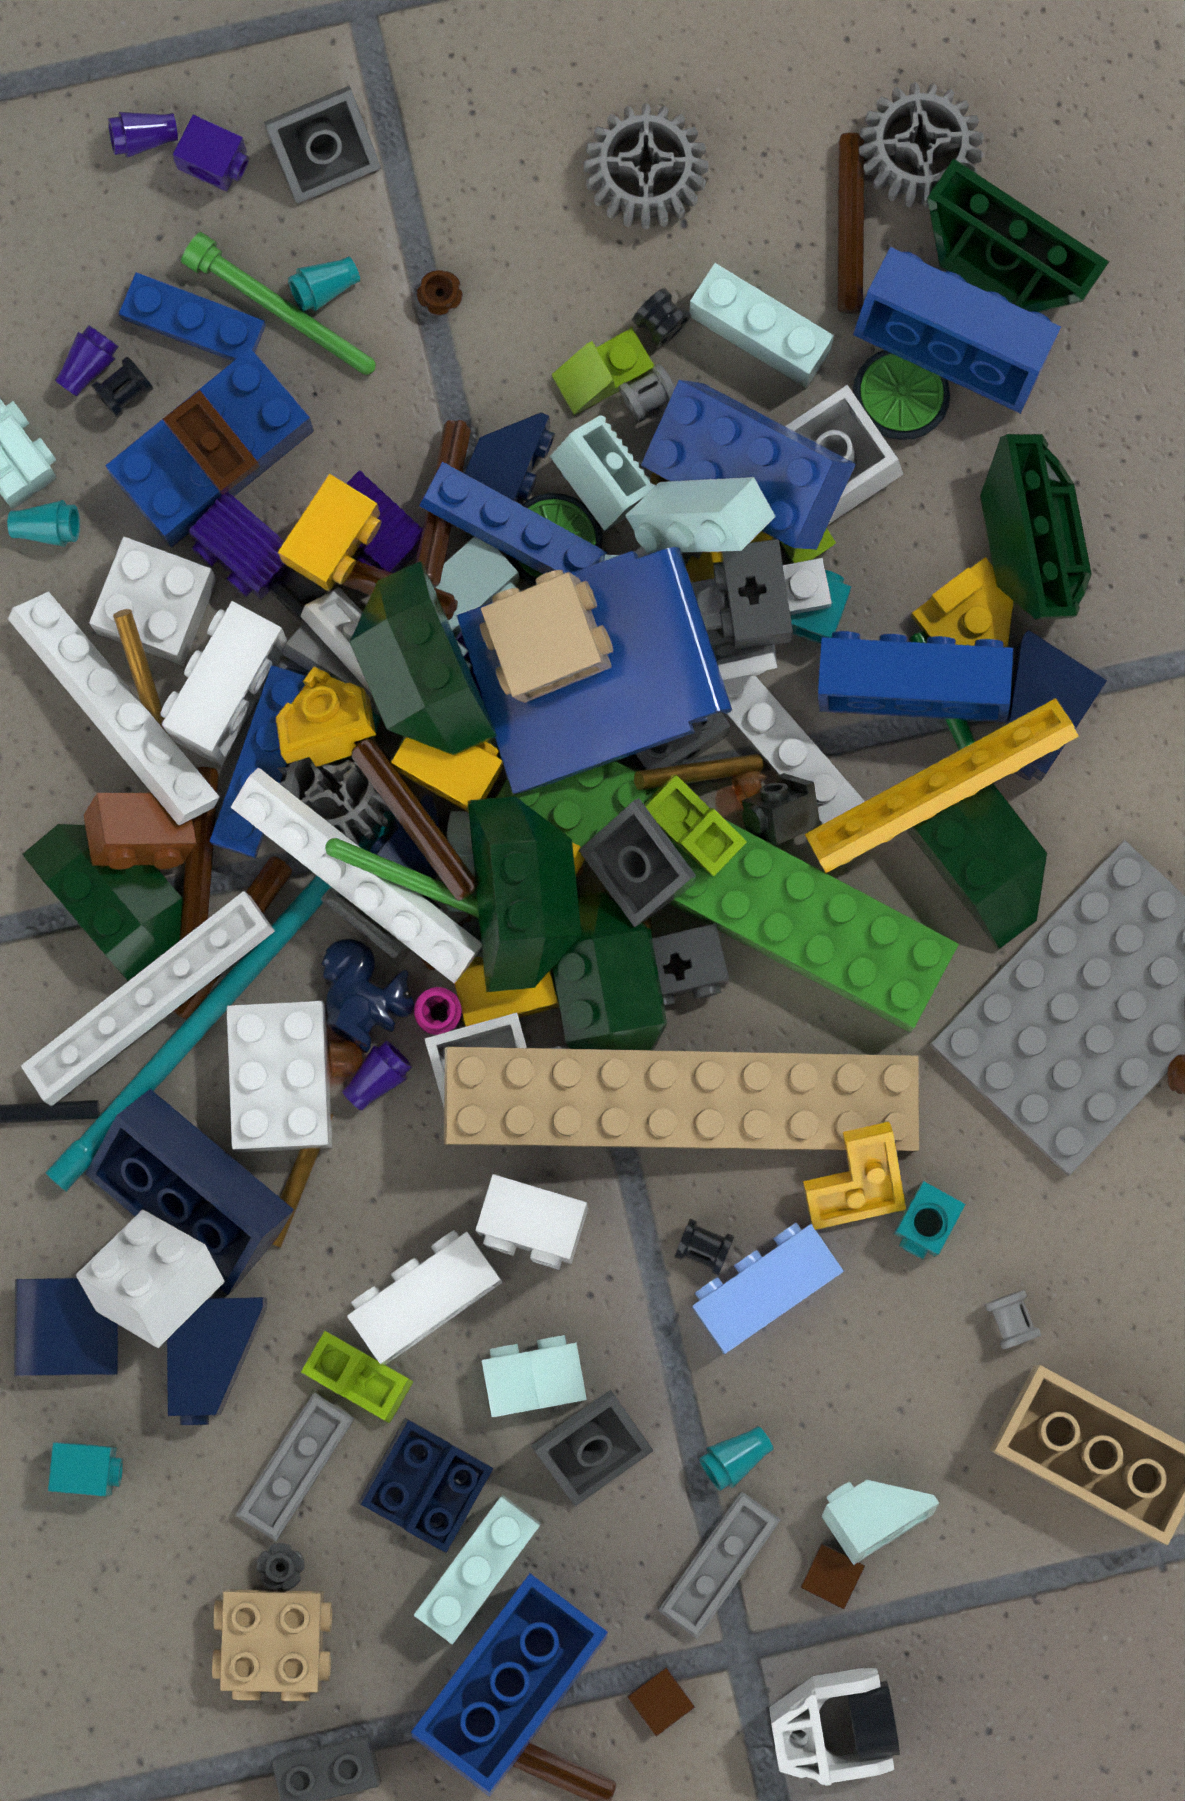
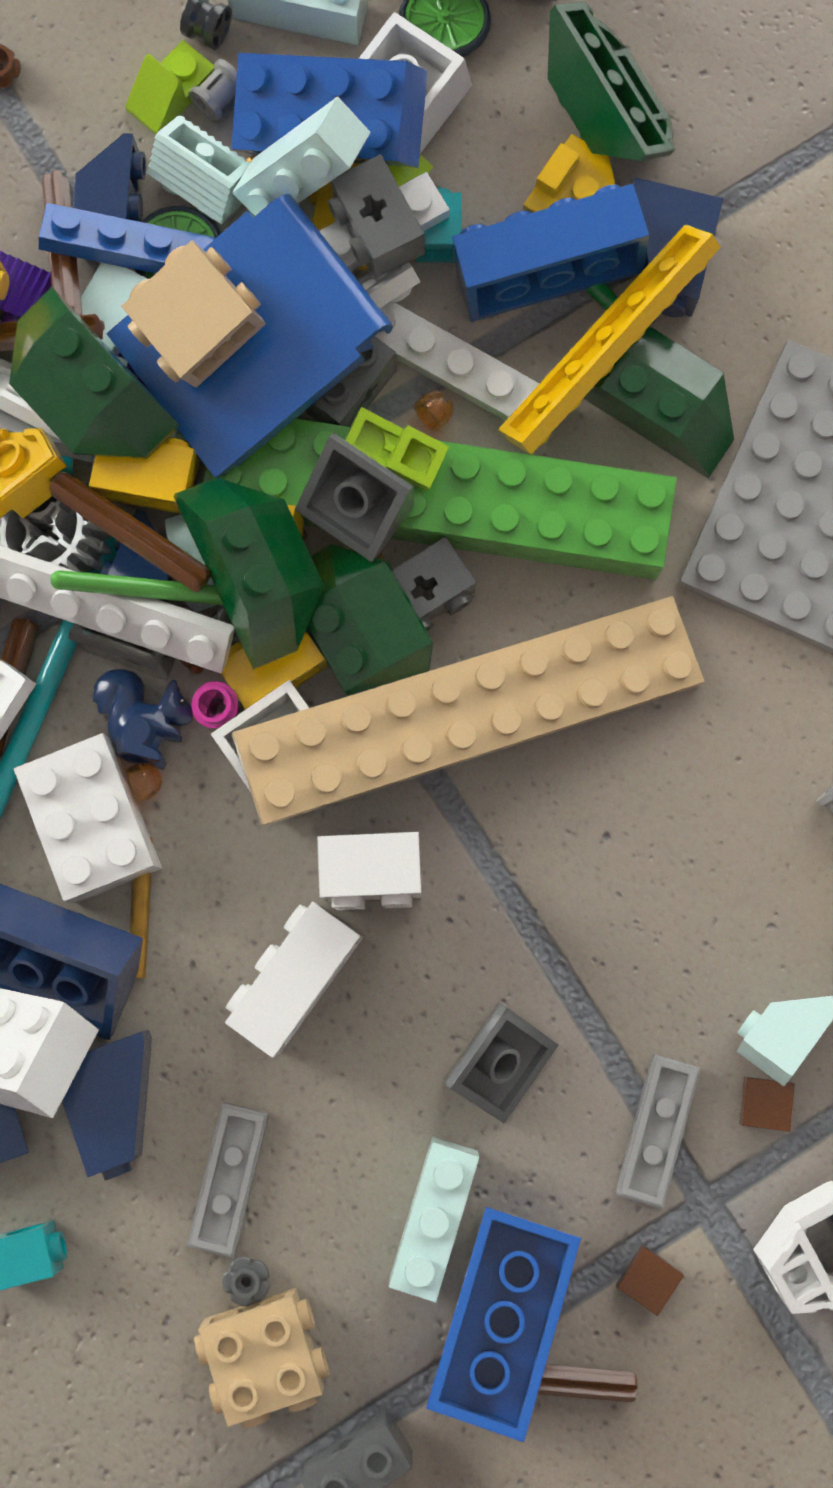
camera: 20 degrees left, 0 degrees up
(357, 1376) = (255, 1074): lime slope -> none
(379, 1073) = (180, 785): dark purple cone -> none
(425, 1485) = (357, 1154): dark blue slope -> none
(533, 1378) = (423, 1017): light aqua brick -> none
(699, 771) = (380, 405): pearl gold bar -> none
(704, 1246) = (539, 838): black bush -> none
(735, 1457) = (637, 1025): teal cone -> none
(765, 1286) = (610, 855): light blue brick -> none
(782, 809) = (470, 412): pearl dark grey brick -> none
(867, 1189) = (672, 729): yellow plate -> none
(943, 1205) = (747, 724): teal brick -> none

